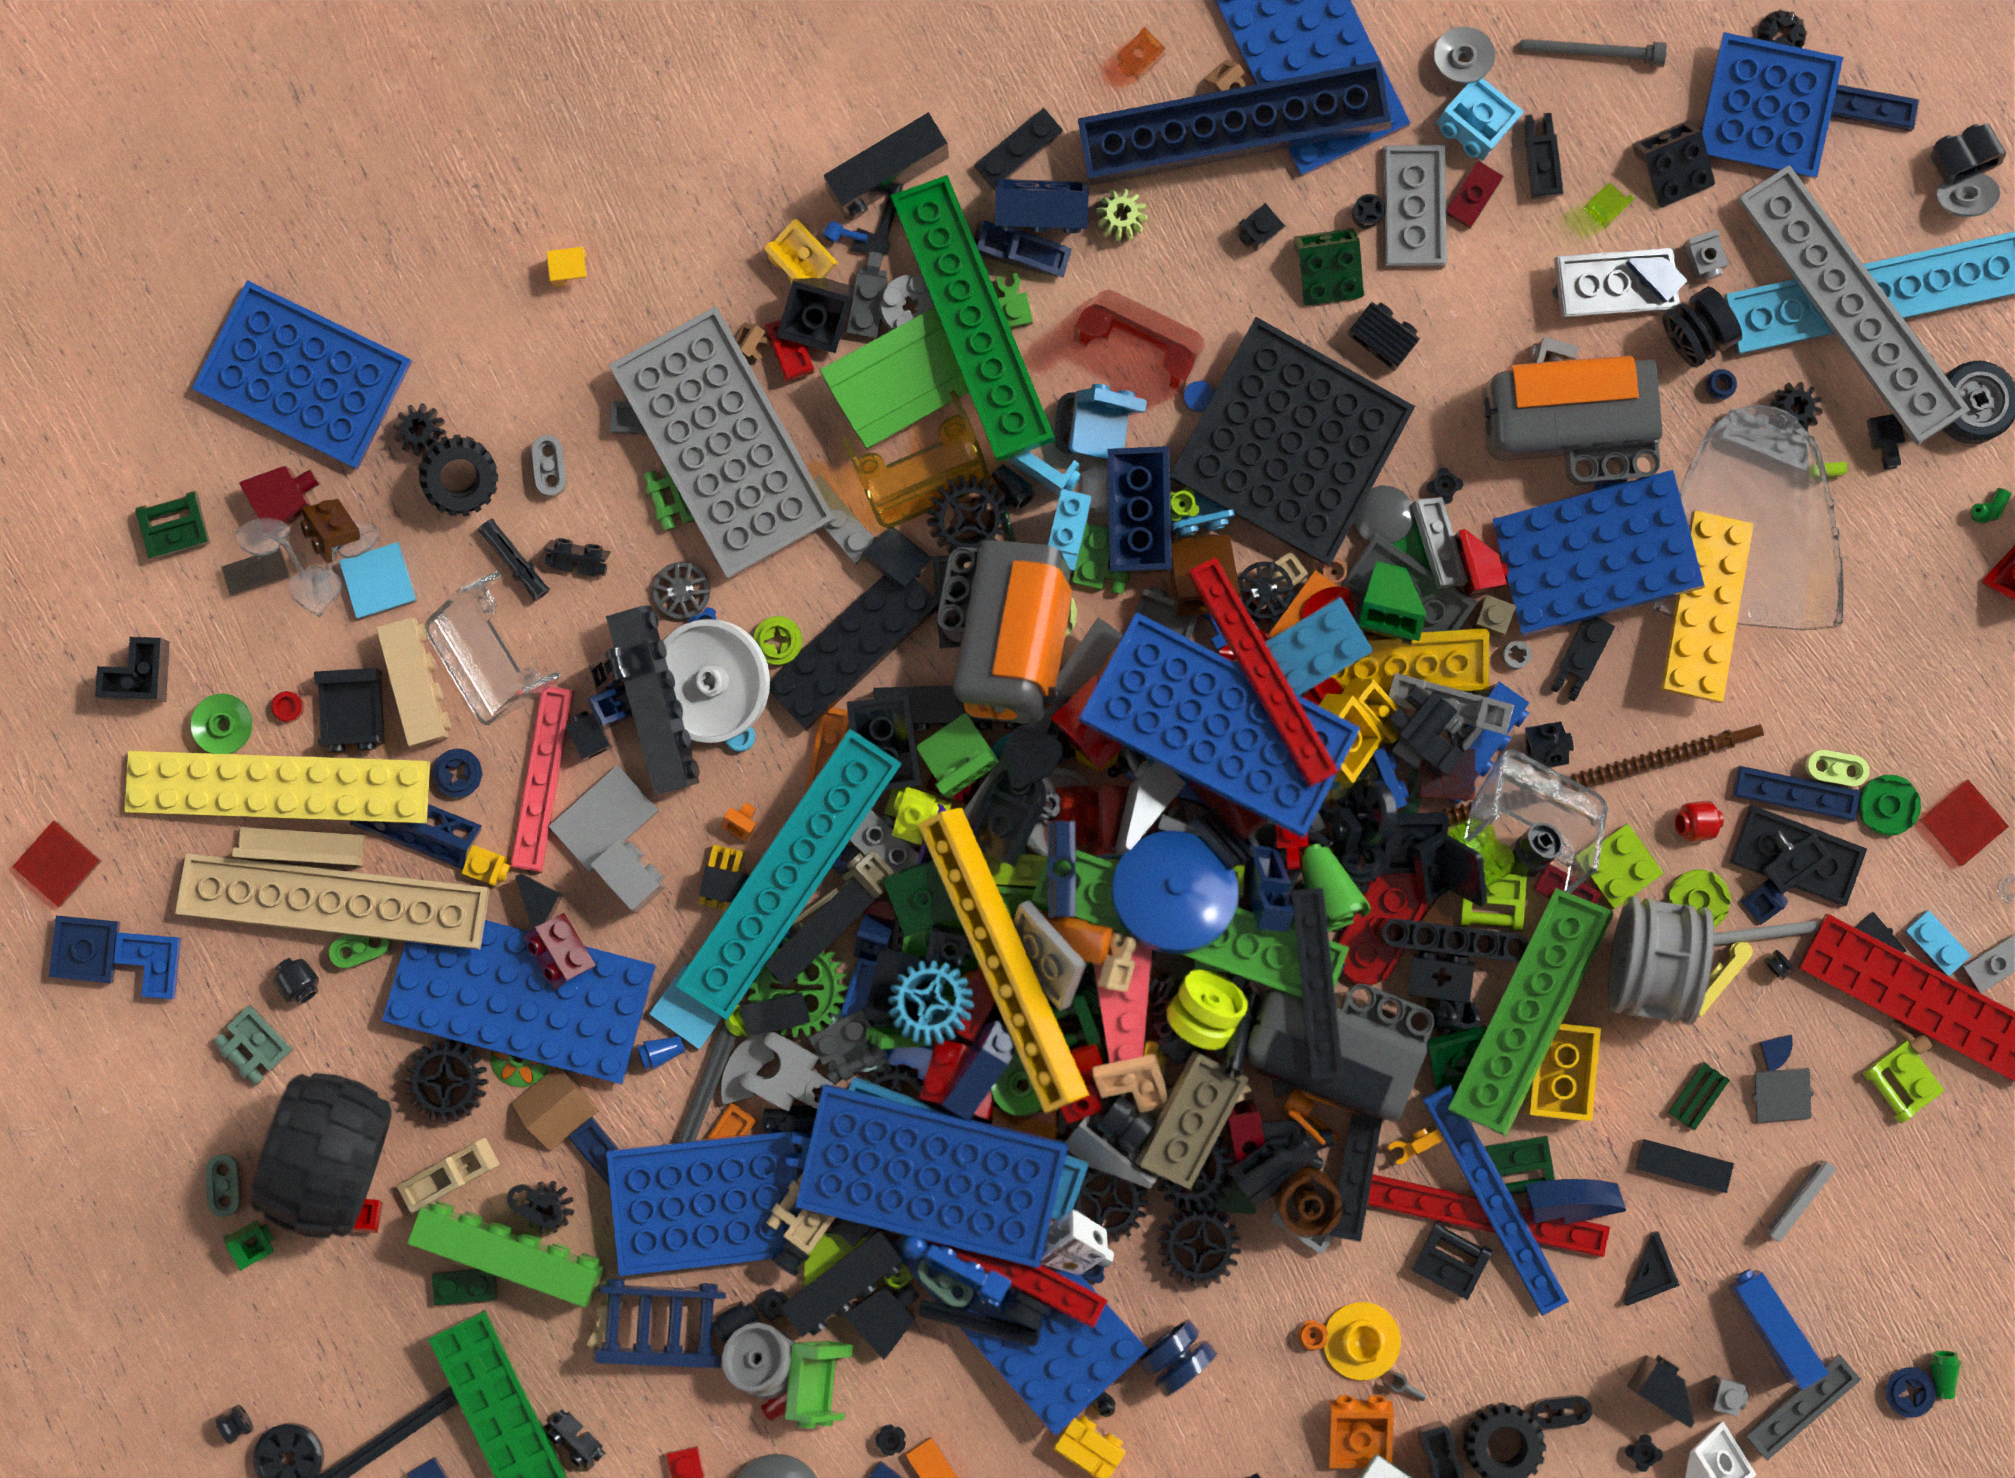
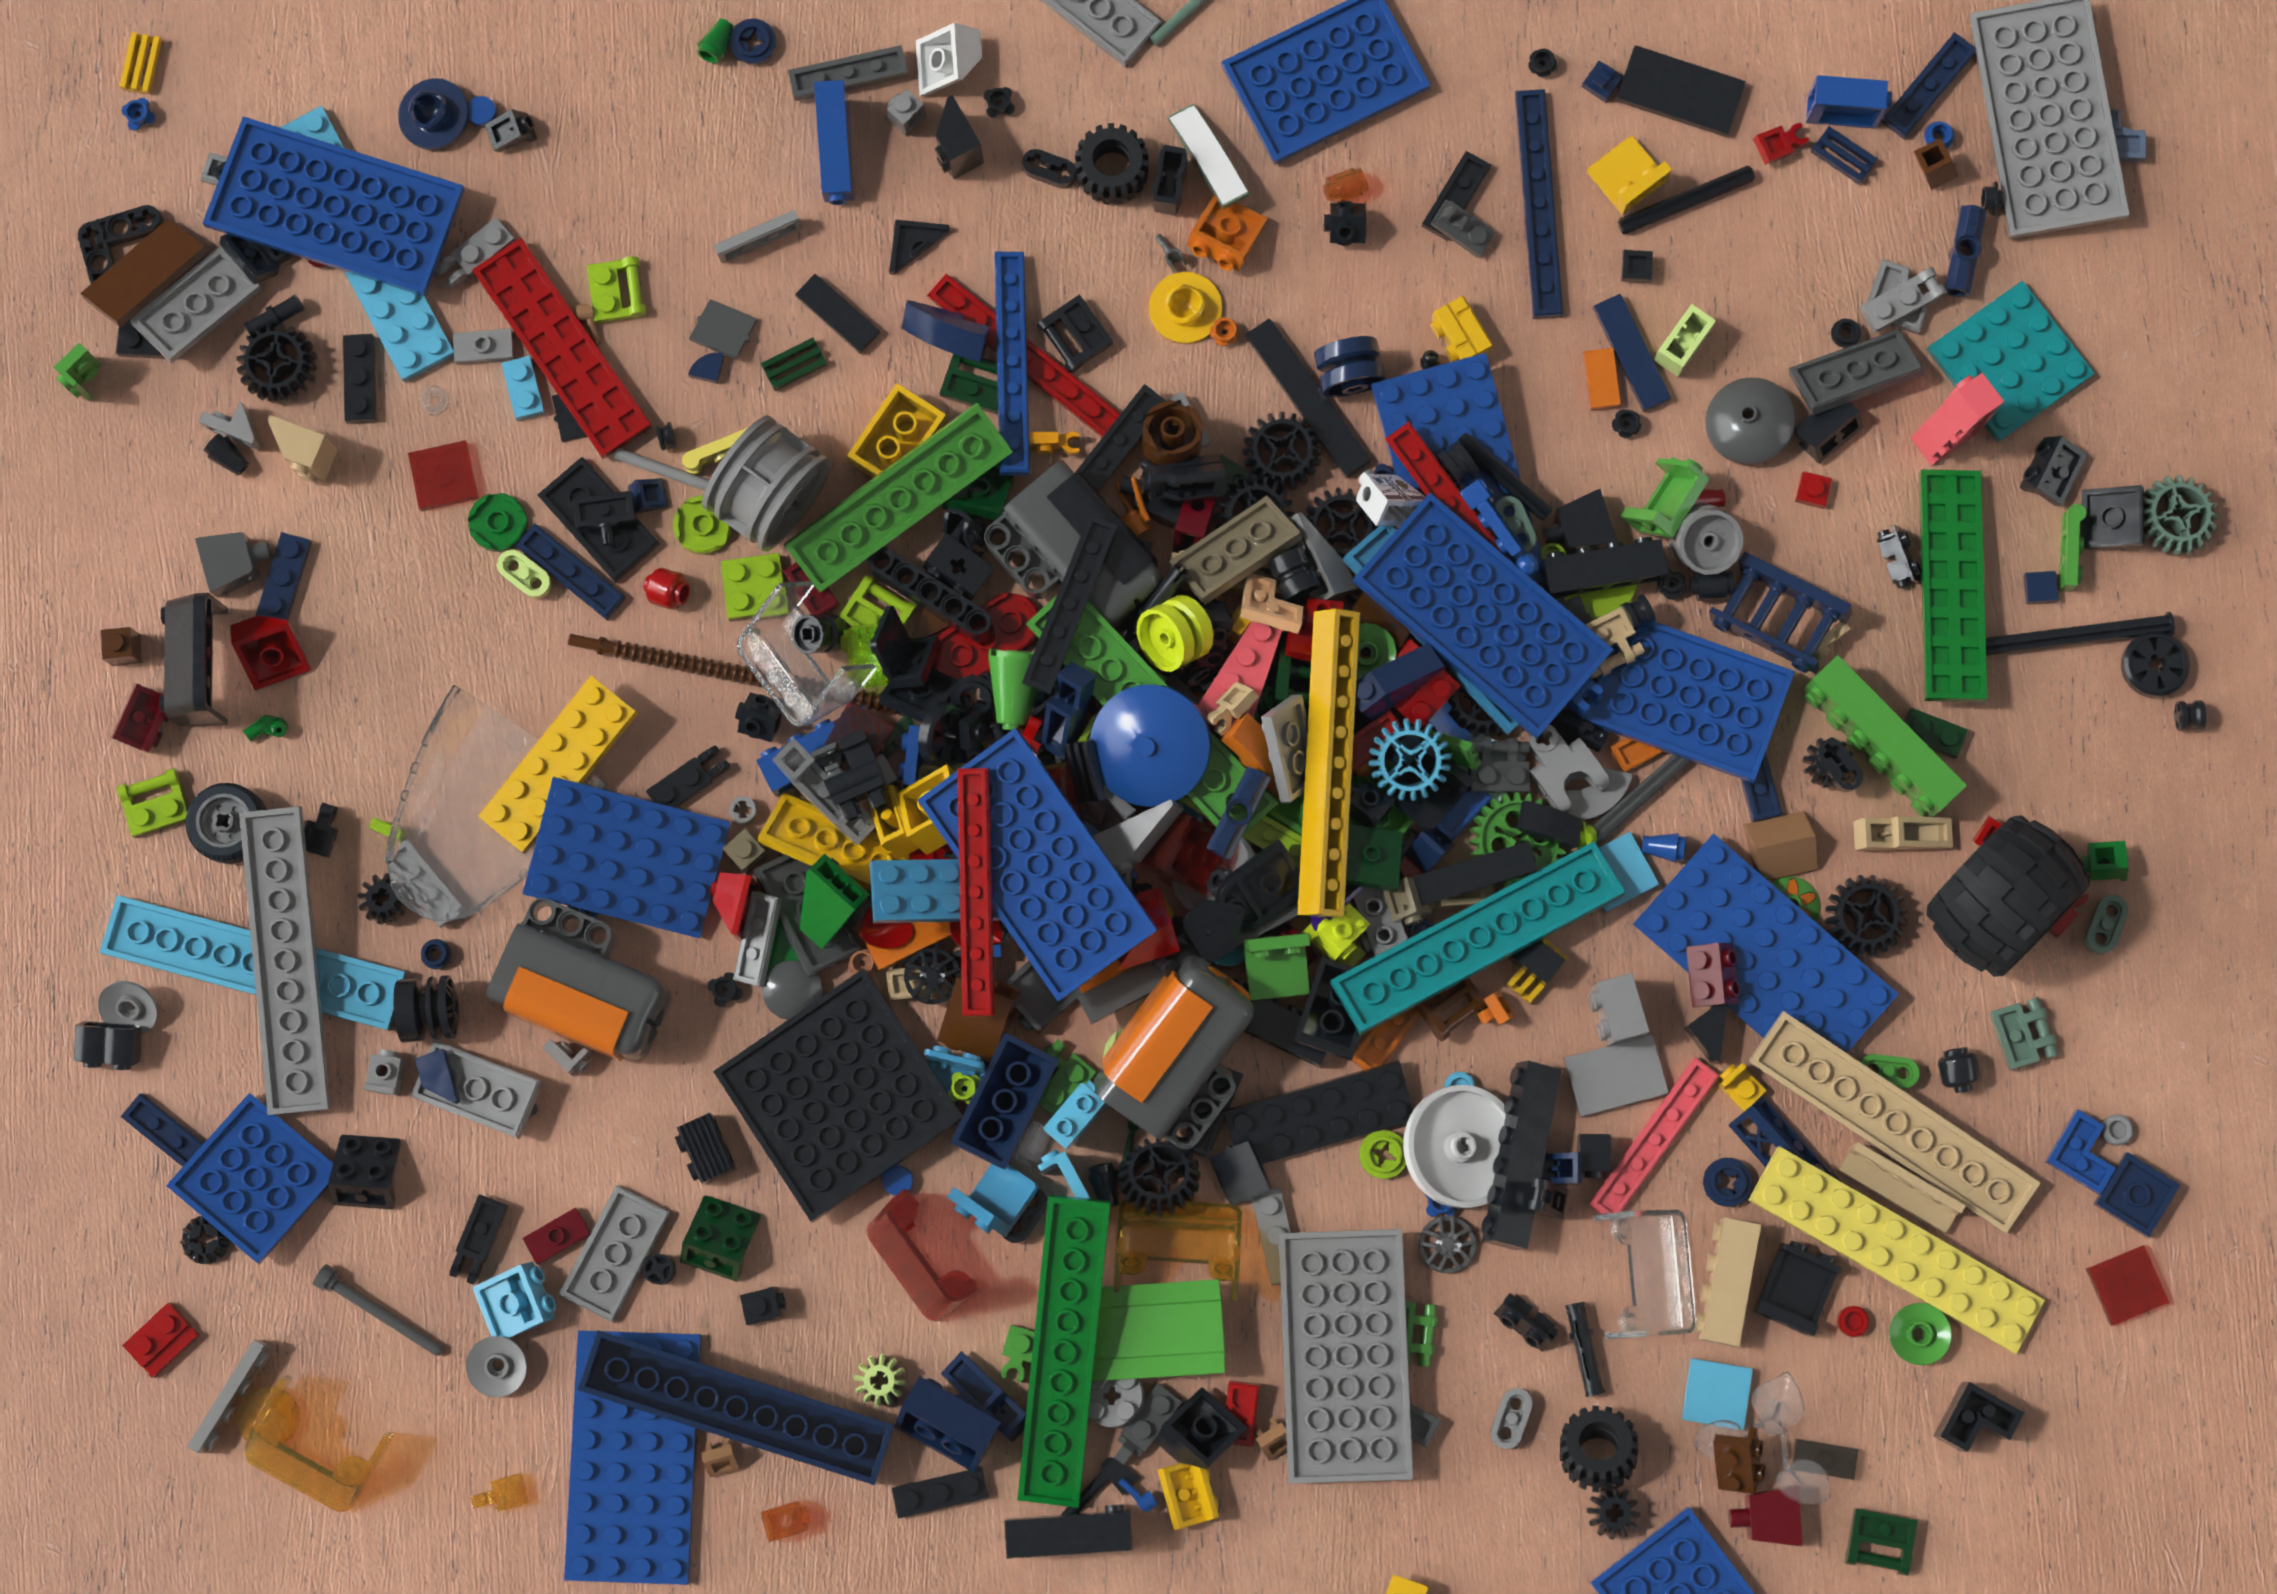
camera: 150 degrees left, 5 degrees down
(128, 1000) = (2117, 1130): none -> light grey tile
(798, 789) = (1434, 1006): none -> reddish brown plate
(1202, 1311) = (1307, 397): none -> black tile
(1608, 205) = (444, 1164): clear neon green panel -> none

